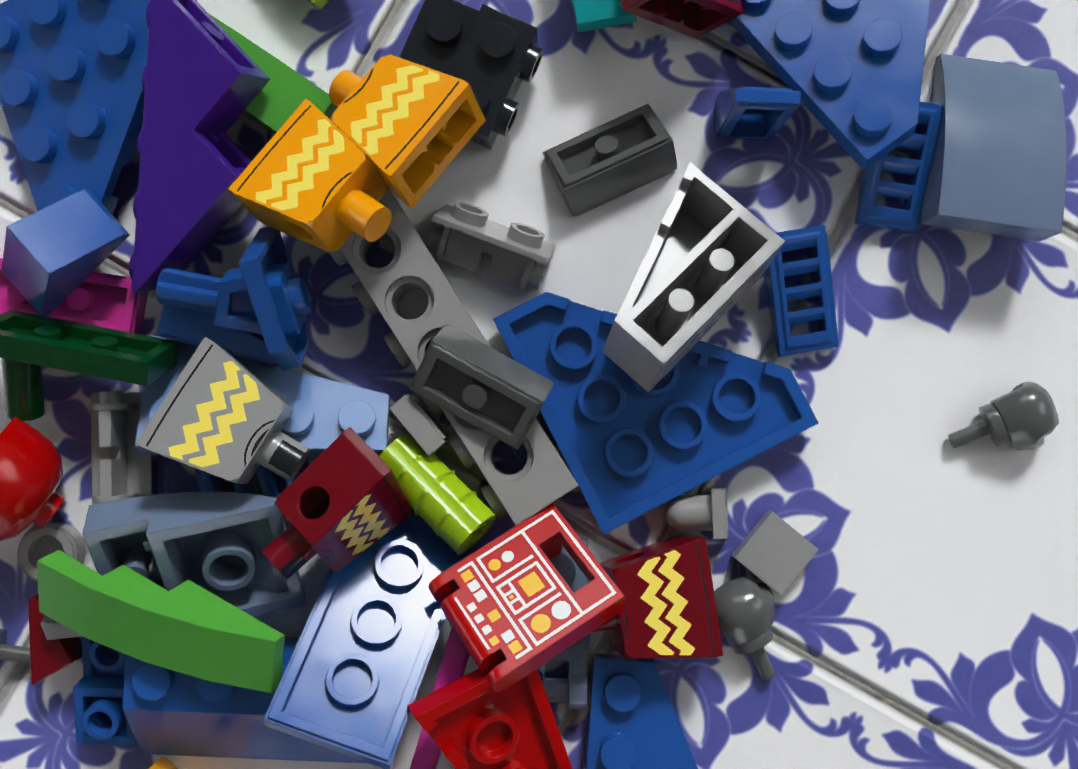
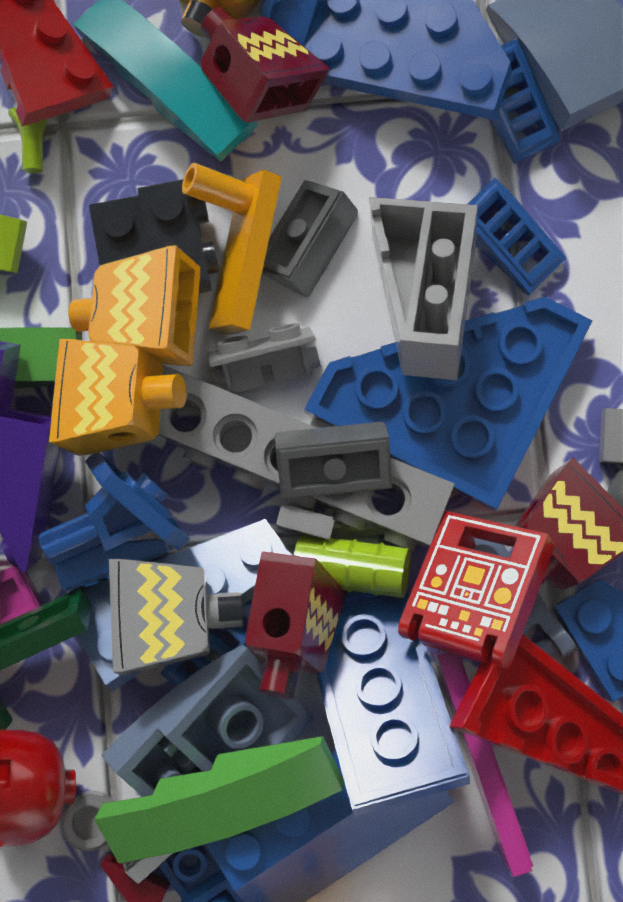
camera: 40 degrees left, 5 degrees down
(116, 463) = (87, 702): light grey hinge -> none
(579, 96) = (253, 210): none -> light orange piece
(700, 513) = (555, 445): light grey piece -> none
(754, 112) = (387, 132): blue slope -> none

